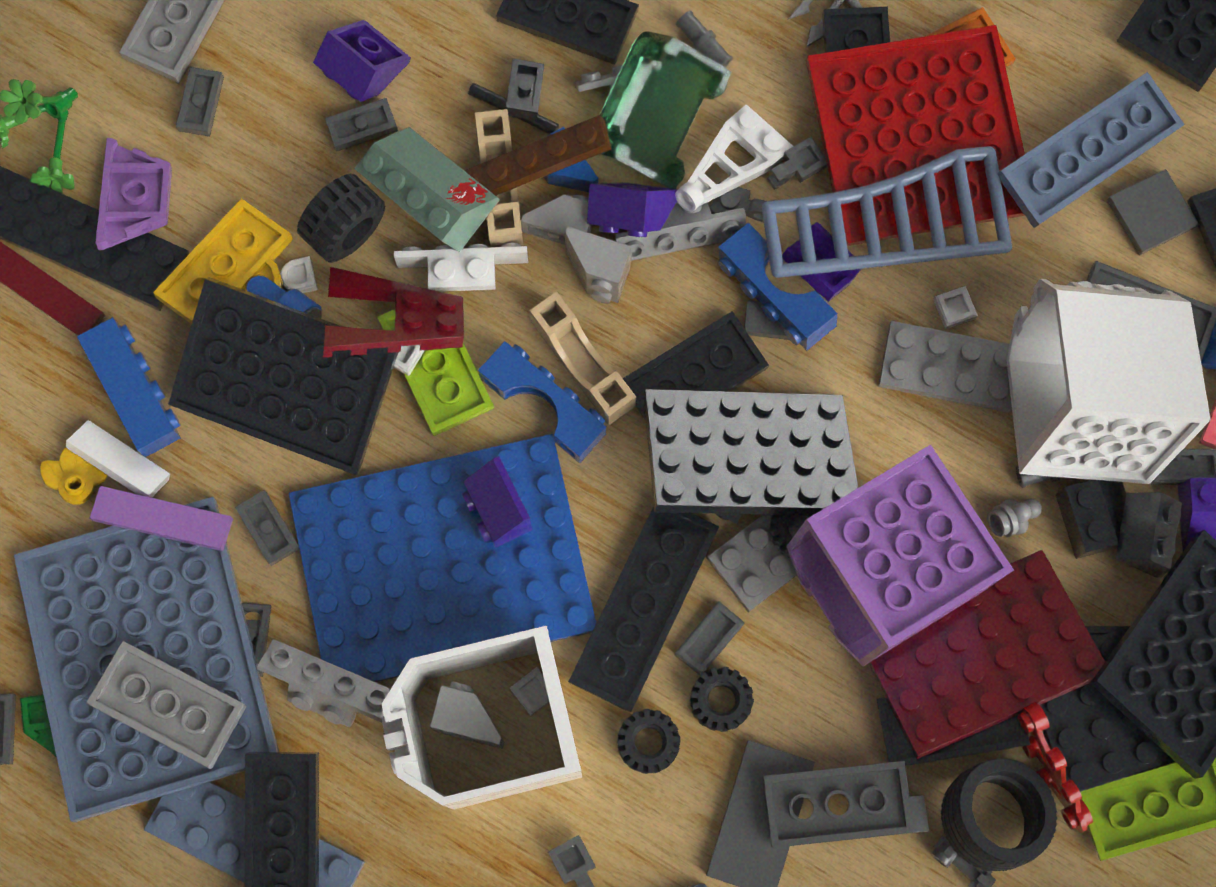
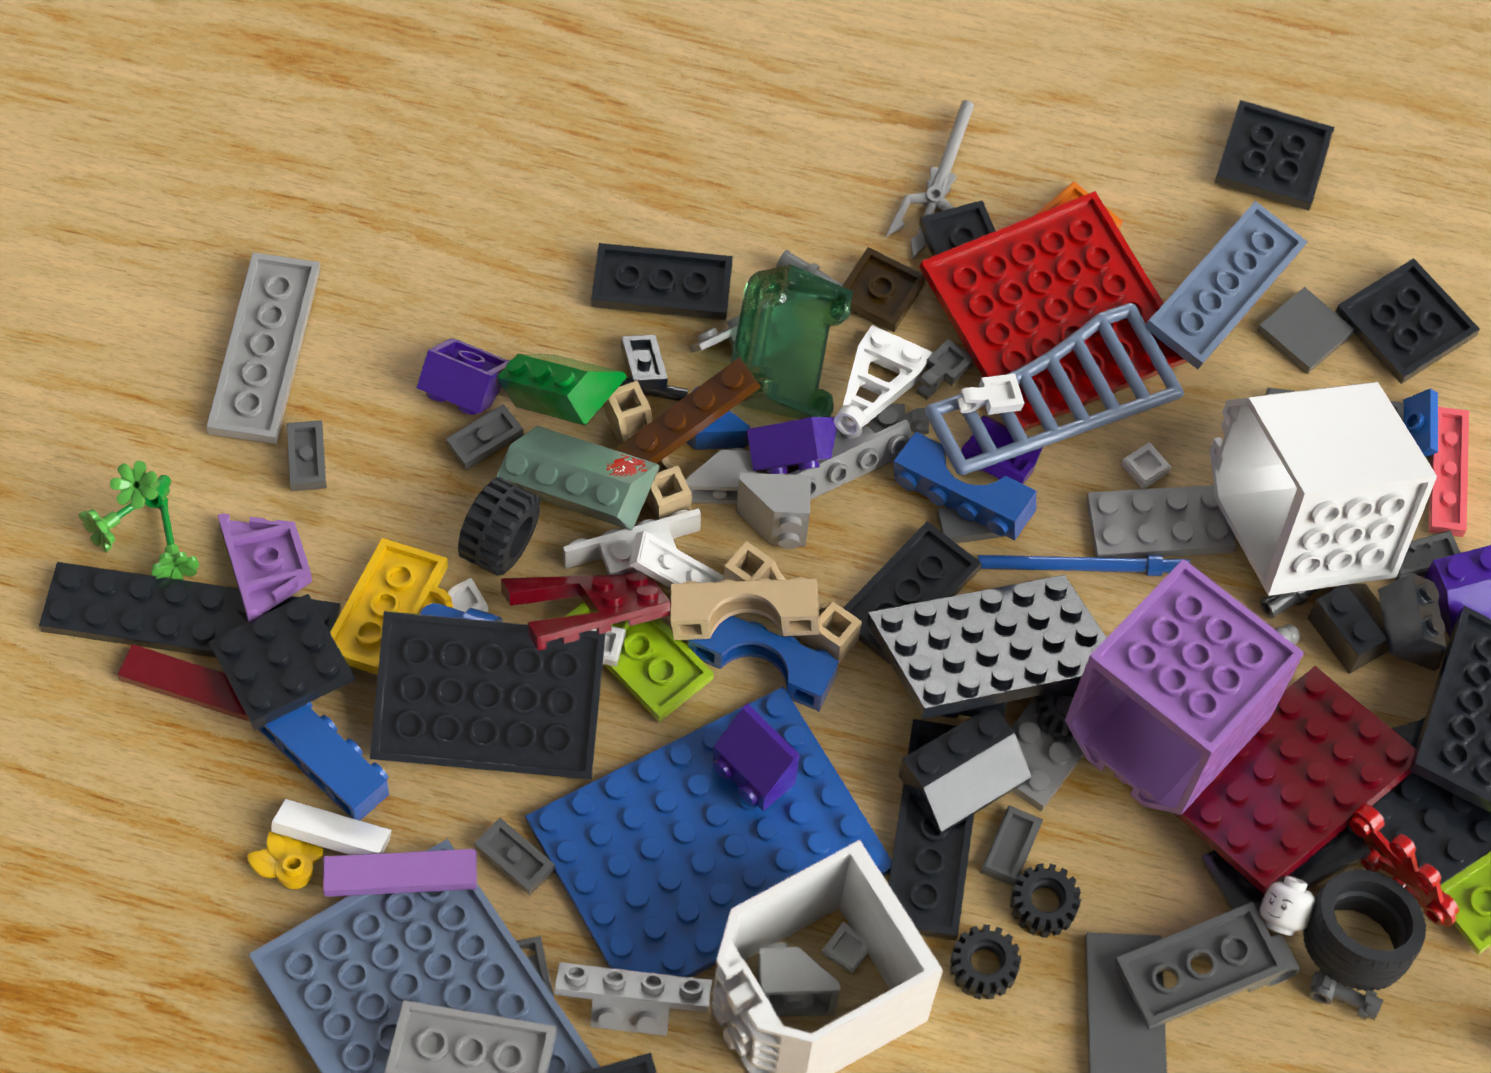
camera: 20 degrees left, 15 degrees down
(114, 295) = (281, 661): none -> black plate
(439, 93) = (559, 385): none -> green slope
(487, 301) = (667, 563): none -> white tile
(493, 346) = (703, 606): none -> tan arch
(686, 562) = (965, 769): none -> slope
(766, 71) = (883, 288): none -> dark brown plate
(831, 209) = (997, 393): none -> white plate
(927, 407) = (1153, 564): none -> blue bar
(934, 775) = (1287, 906): none -> white head

